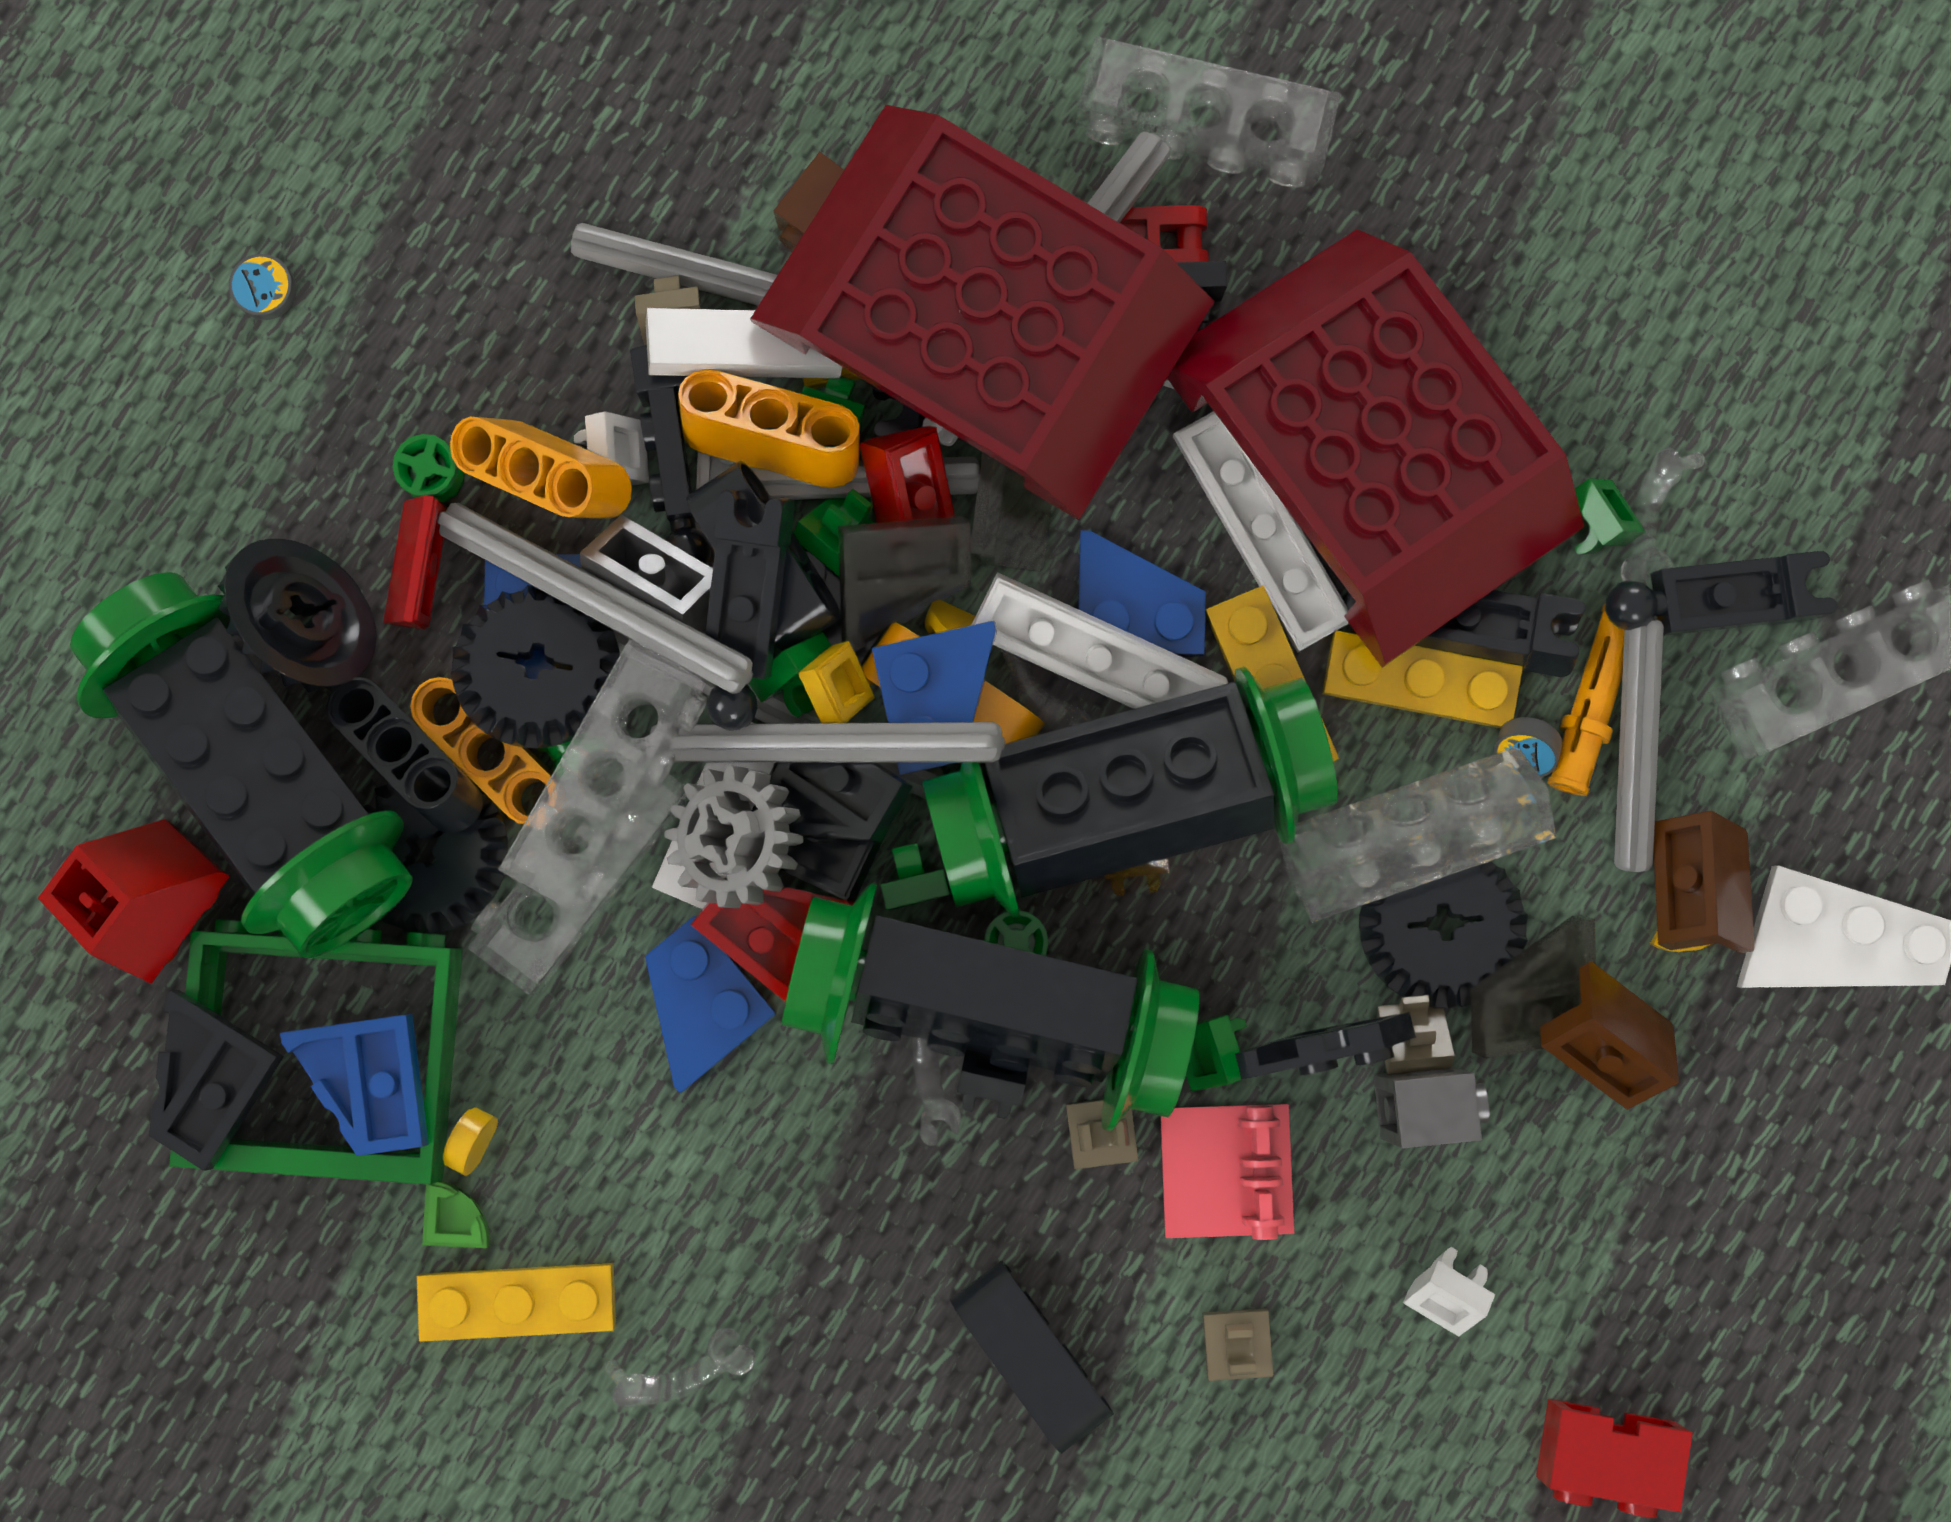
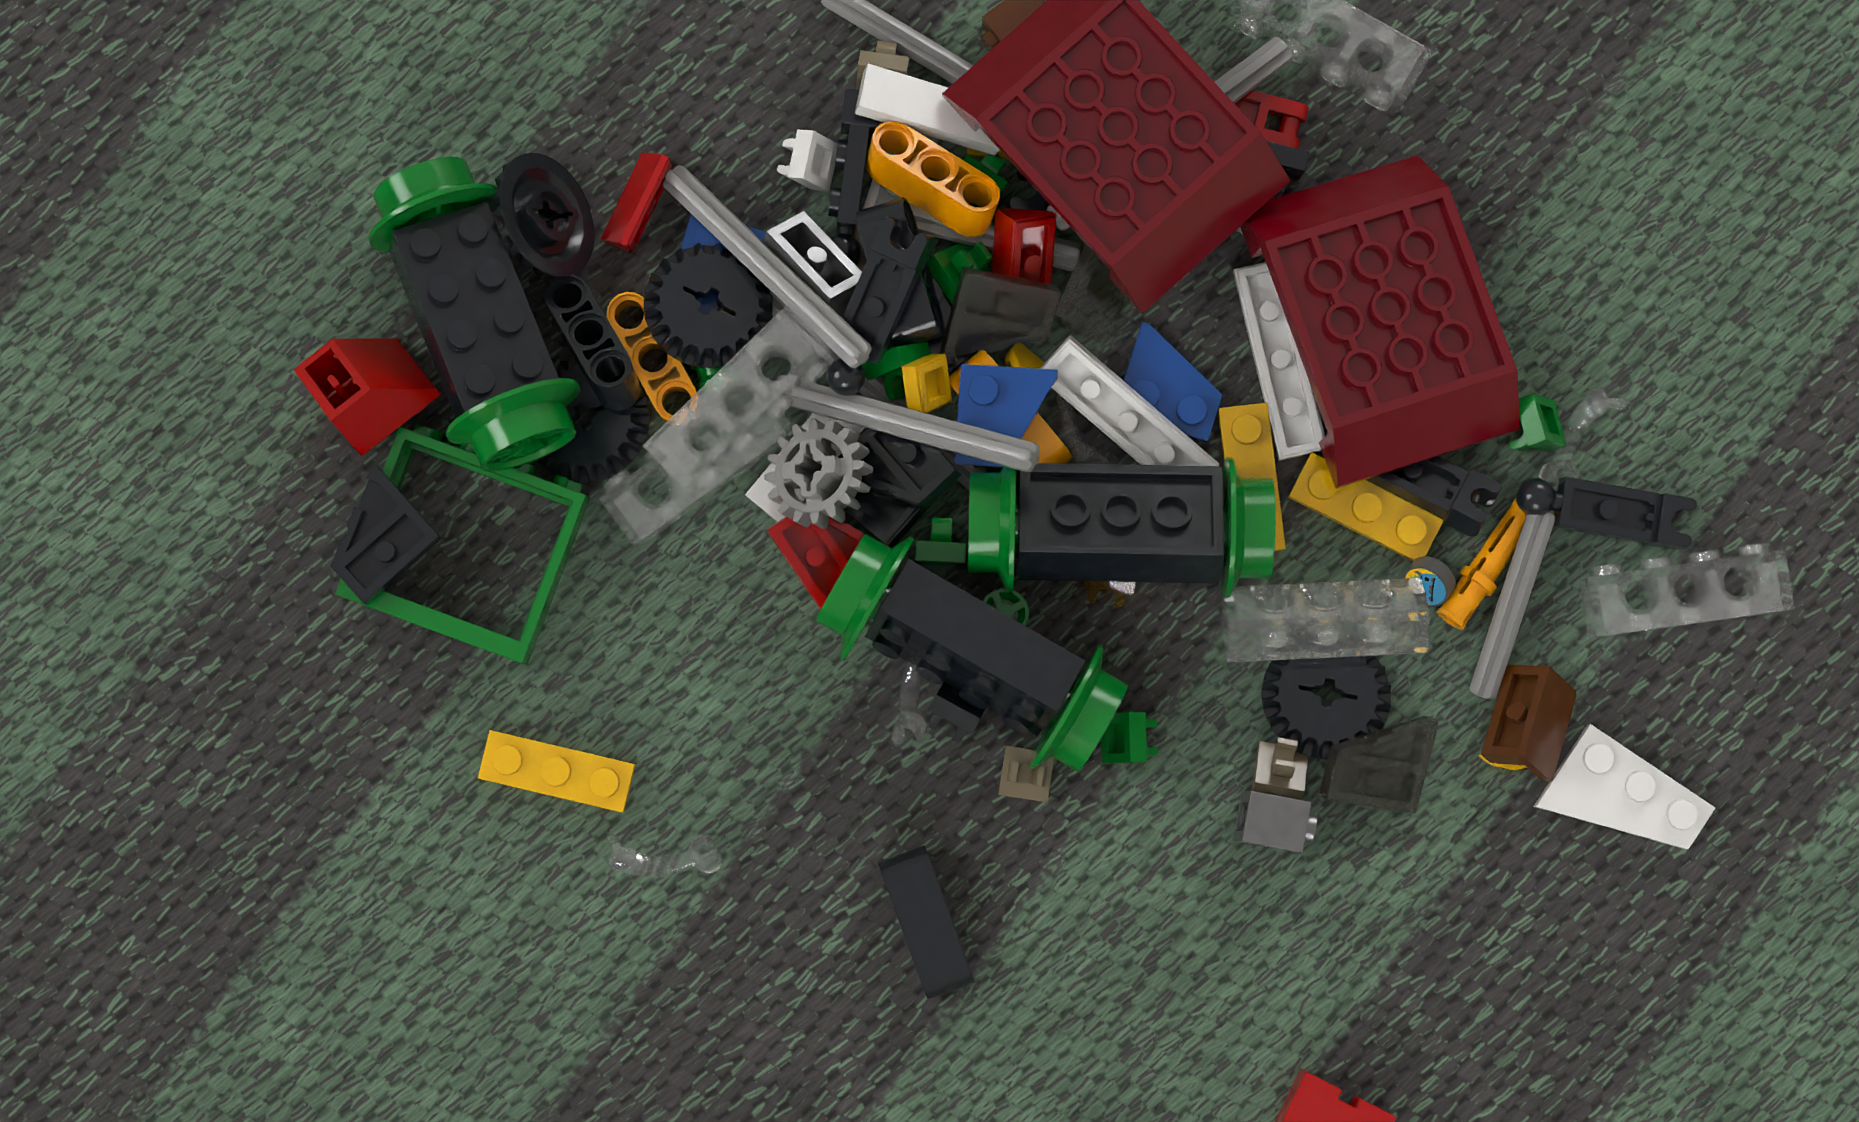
camera: 15 degrees right, 0 degrees up
(367, 1079) = (499, 572): blue wing -> none
(416, 463) = (661, 128): green wheel -> none
(453, 1218) = (527, 695): bright green tile -> none
(469, 1140) = (557, 641): yellow tile -> none
(540, 468) = (772, 163): light orange beam -> none
(701, 1003) = (756, 591): blue wing -> none
(1227, 1171) = (1111, 829): coral hinge -> none
(1237, 1344) = (1081, 959): dark tan tile -> none
(1320, 1048) = (1205, 756): black wing -> none
(1449, 1296) = (1249, 969): white tile -> none
(1614, 1040) = (1427, 815): reddish brown panel -> none

